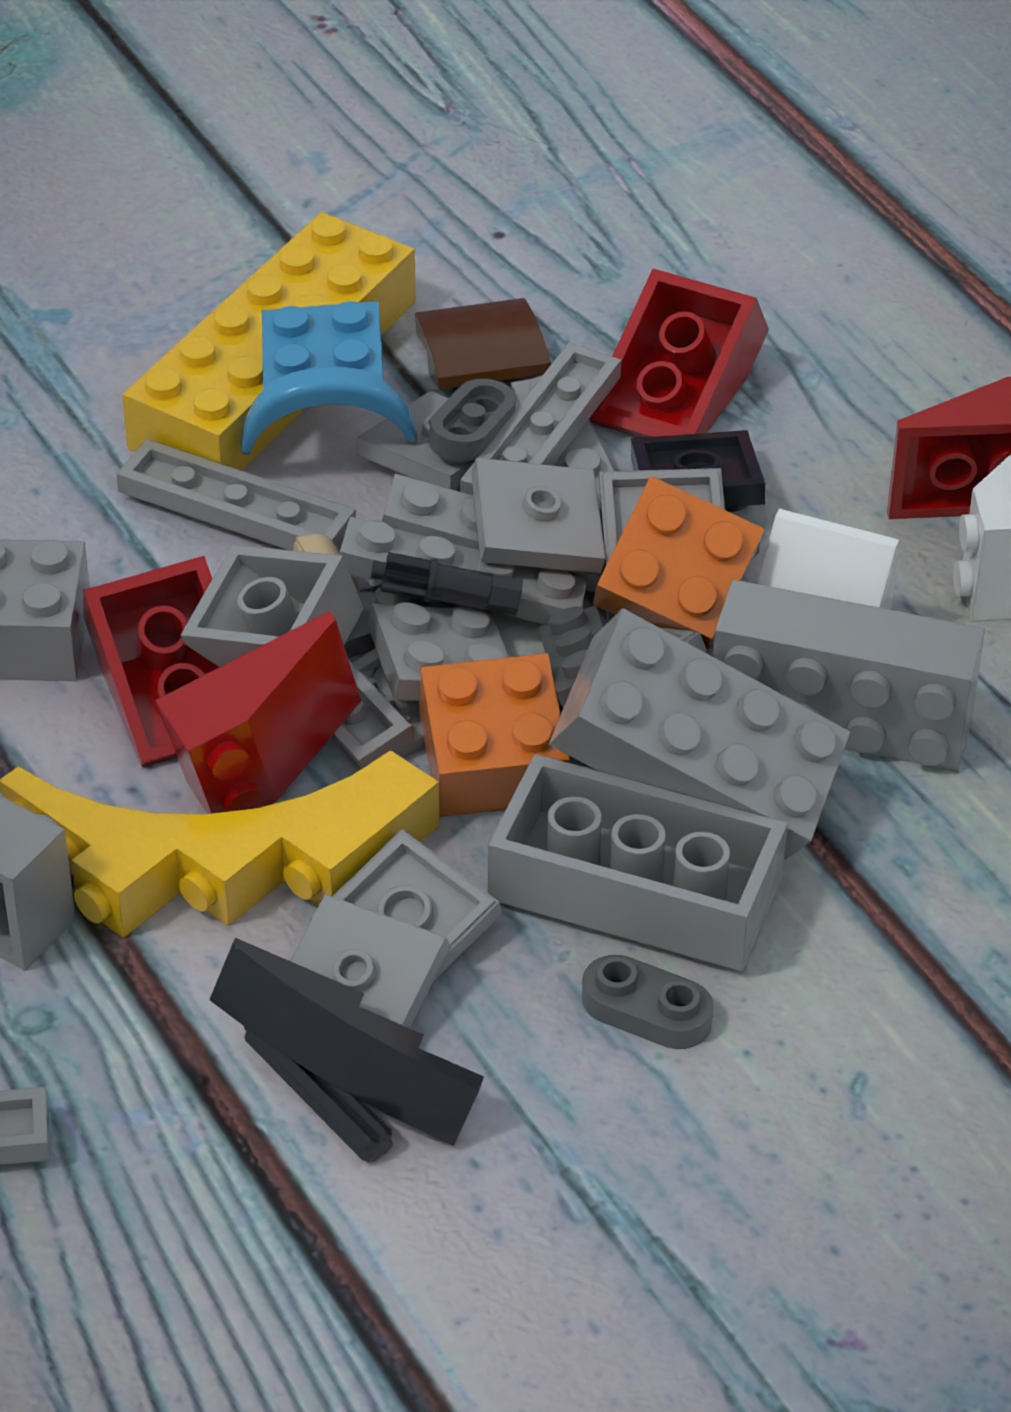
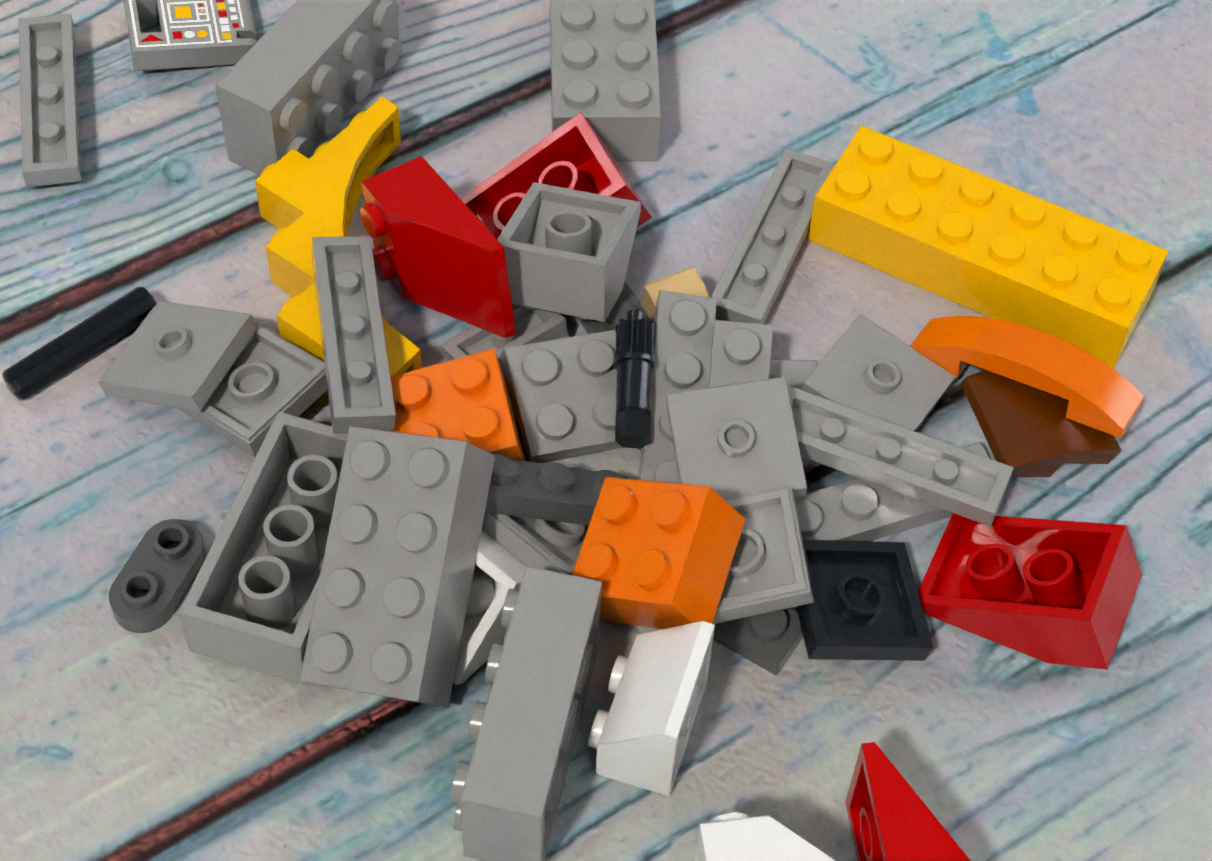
camera: 85 degrees right, 10 degrees up
(323, 360) = (906, 256): dark azure piece -> none
(345, 1044) = (98, 324): black slope -> none
(385, 780) = (352, 334): none -> light grey plate
(435, 323) = (1038, 359): none -> orange slope
(470, 420) = (873, 386): dark grey plate -> none

